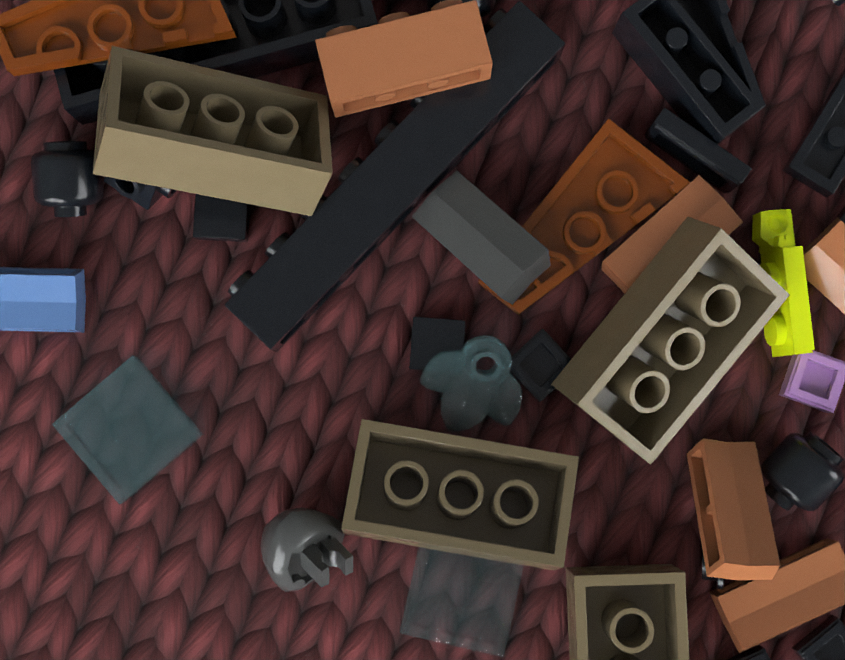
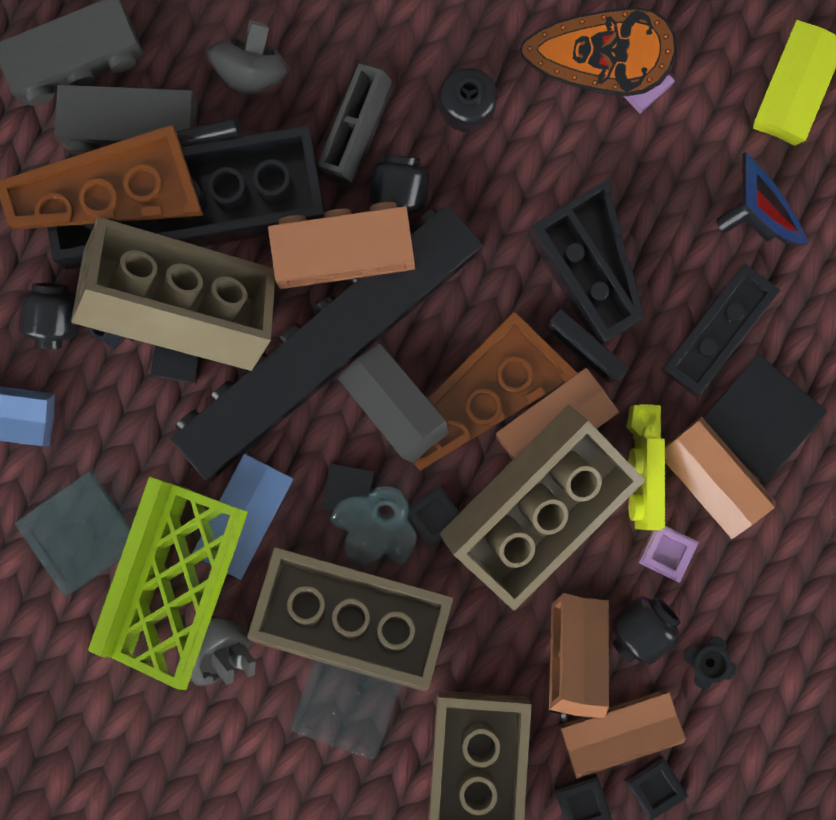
camera: 10 degrees right, 0 degrees up
(209, 463) = (143, 570): none -> lime fence
(318, 388) = (260, 492): none -> medium blue piece

